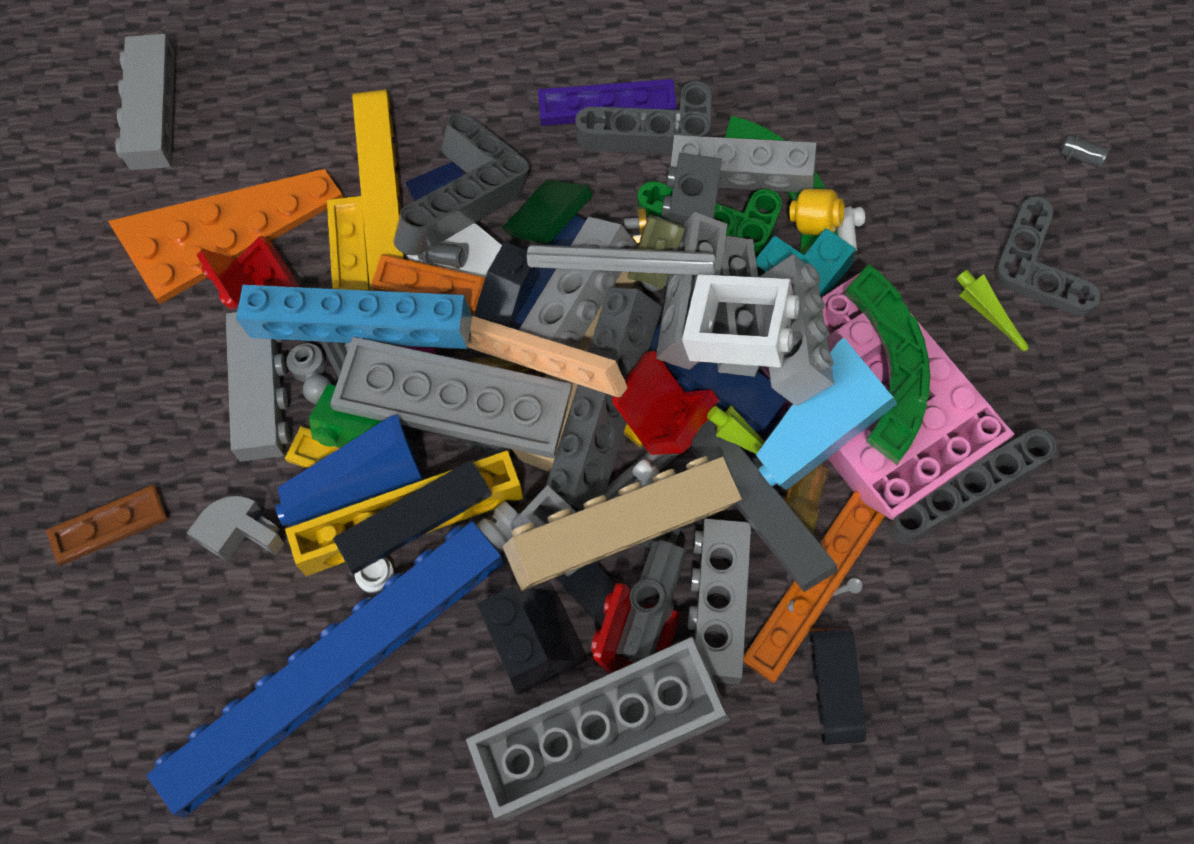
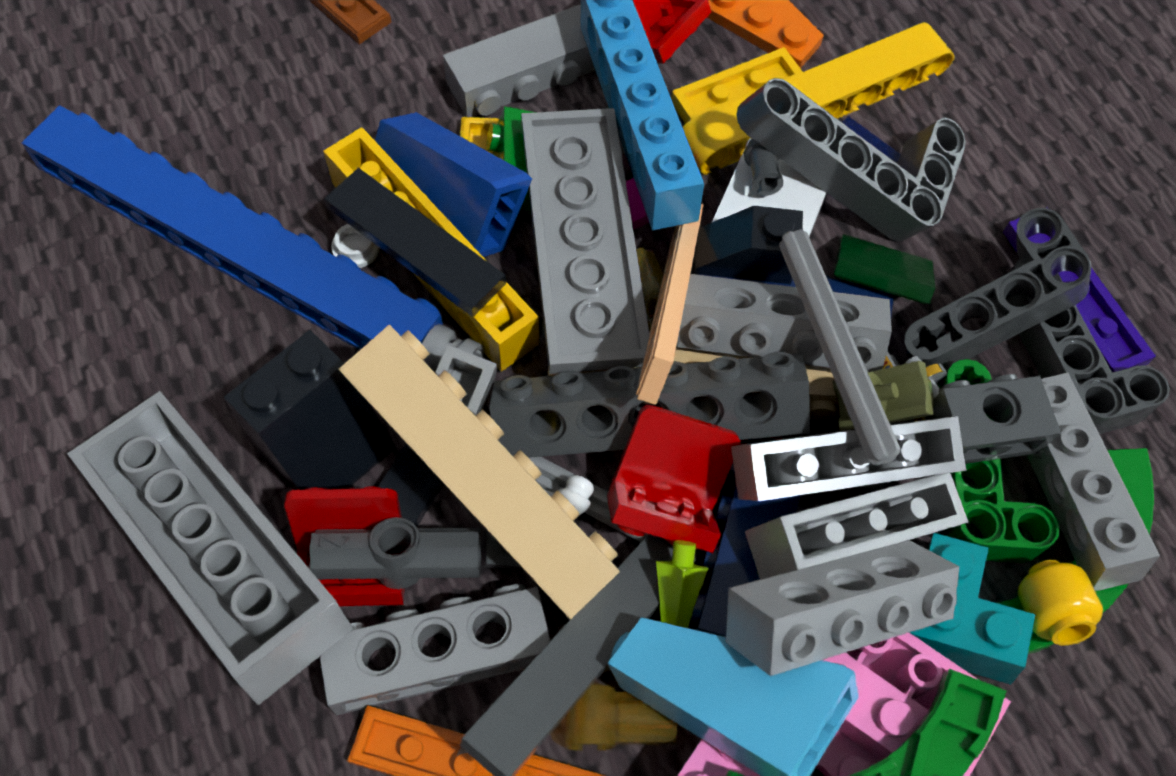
camera: 65 degrees right, 5 degrees down
(229, 521) = (360, 89): light grey brick -> none
(308, 371) = (577, 94): light grey plate -> none
(409, 276) = (720, 163): orange tile -> none
(608, 156) = (990, 302): none -> dark grey beam
(768, 351) = (811, 464): white window -> none
(852, 218) = (1059, 658): white arm -> none

